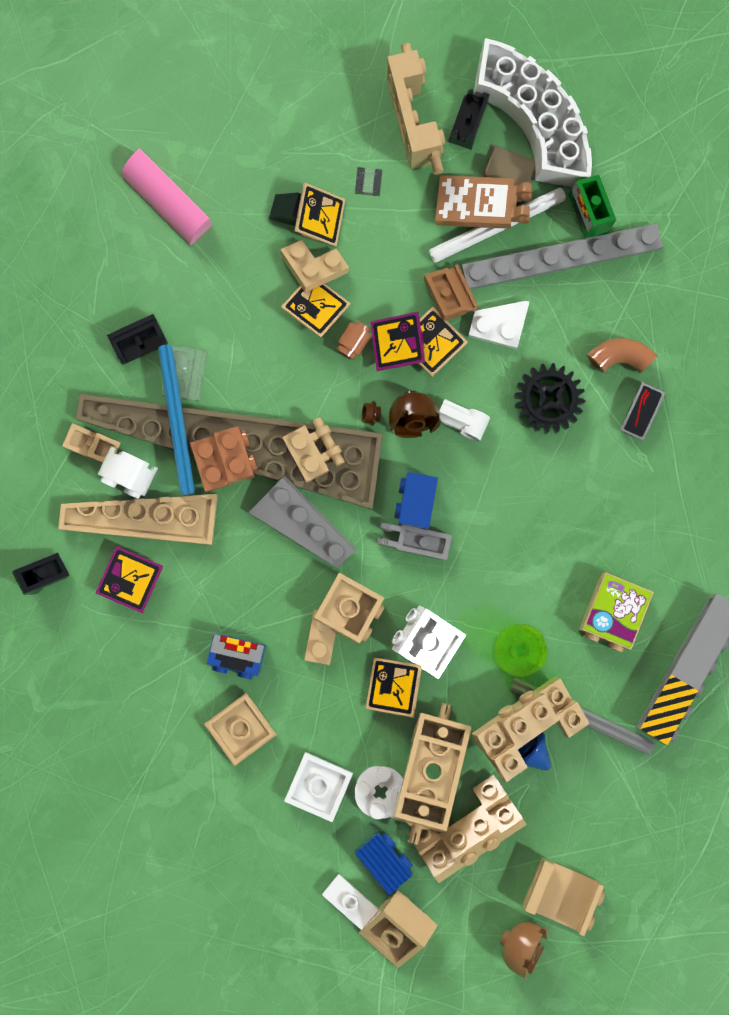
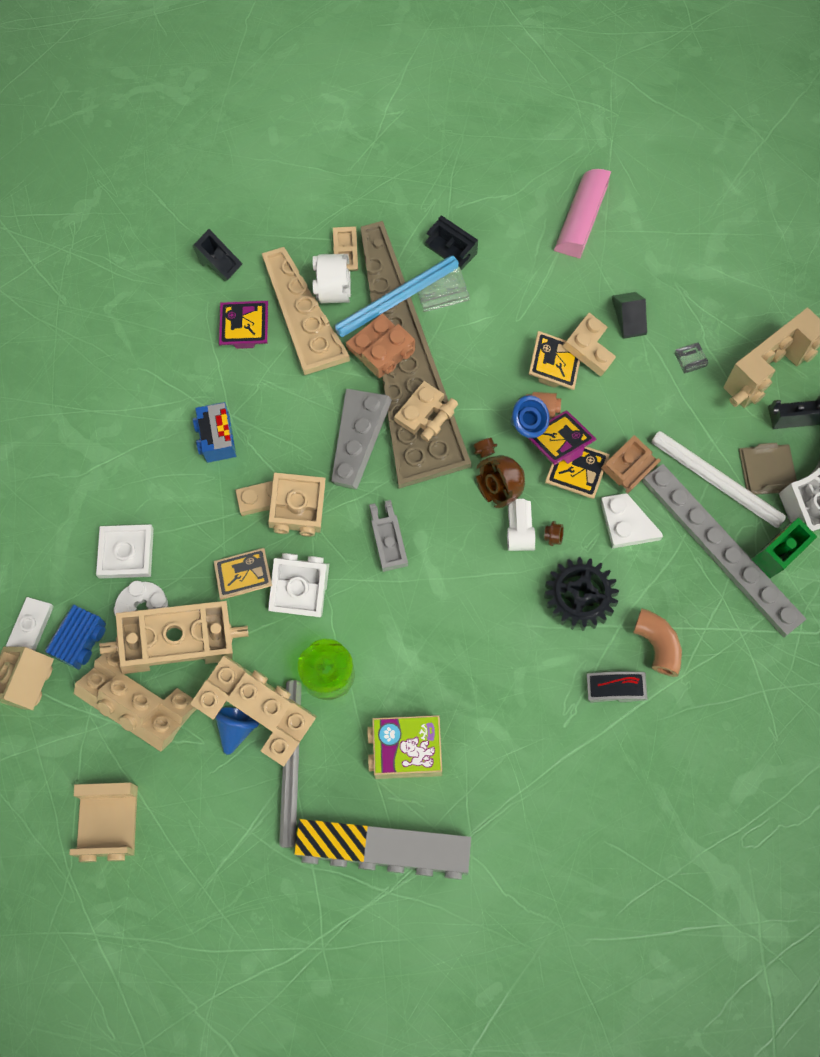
camera: 70 degrees right, 15 degrees down
(240, 729) = (151, 465): tan plate -> none
(319, 215) = (637, 328): piece -> none
(367, 359) = (530, 416): none -> blue hat
(417, 500) = (424, 517): blue brick -> none
(481, 202) = (729, 453): medium nougat tile -> none
(482, 393) = (554, 533): none -> reddish brown plate
(523, 947) = (38, 803): medium nougat cylinder -> none

